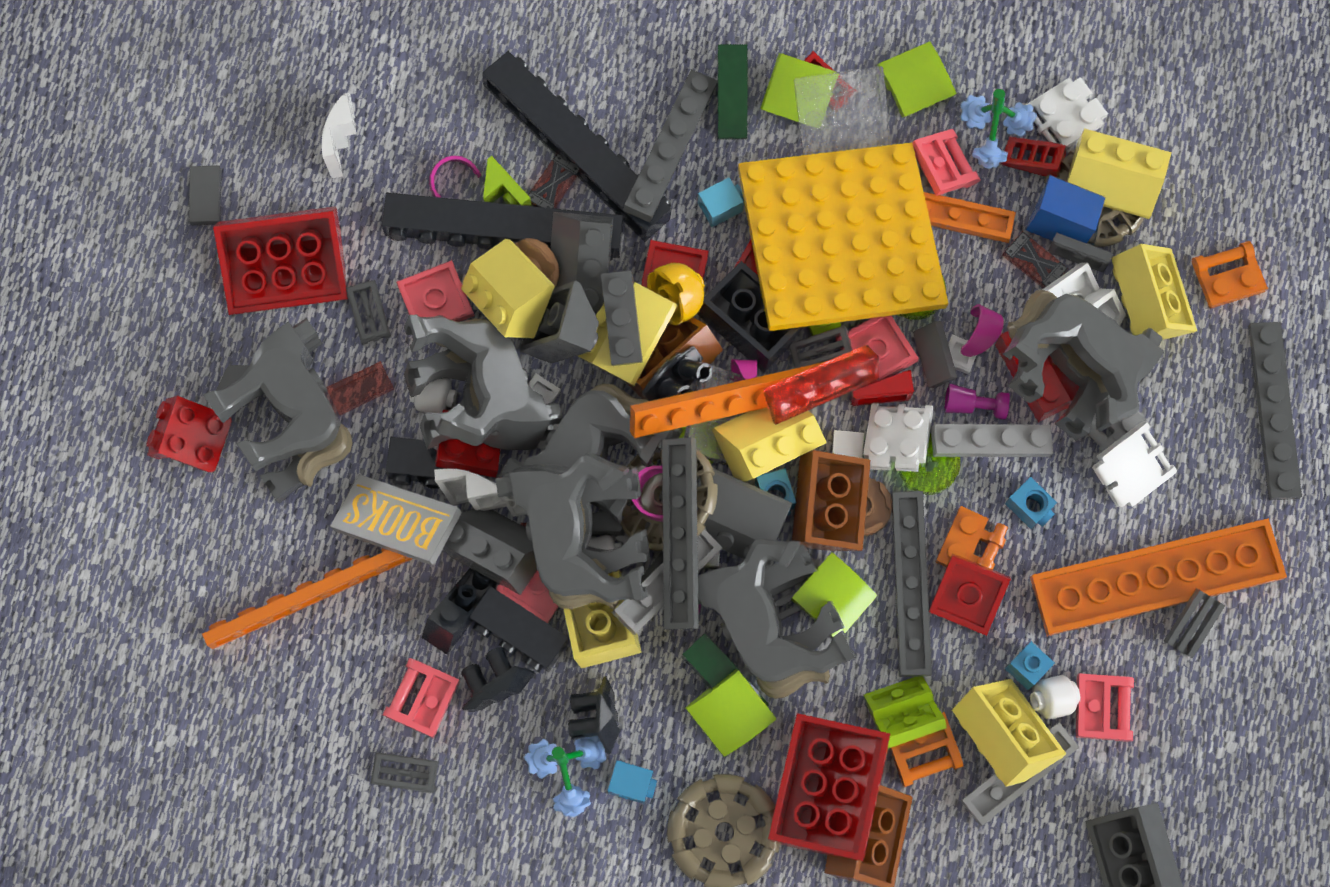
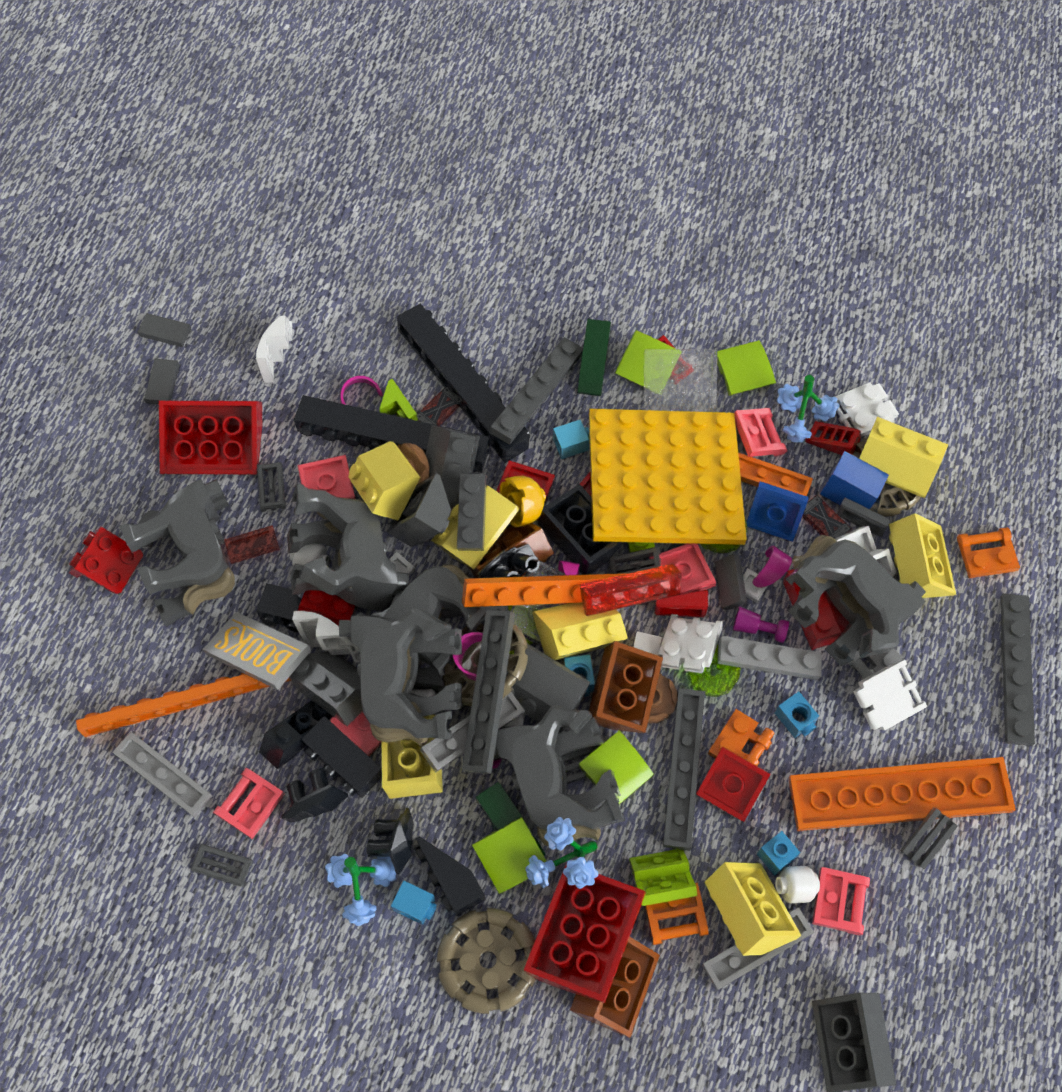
camera: 10 degrees right, 10 degrees down
(192, 126) = (164, 330): none -> dark grey tile
(314, 679) = (162, 774): none -> light grey plate
(673, 750) = (455, 879): none -> black slope
(785, 688) = (578, 871): none -> light blue plant
(978, 261) = (777, 511): none -> blue tile

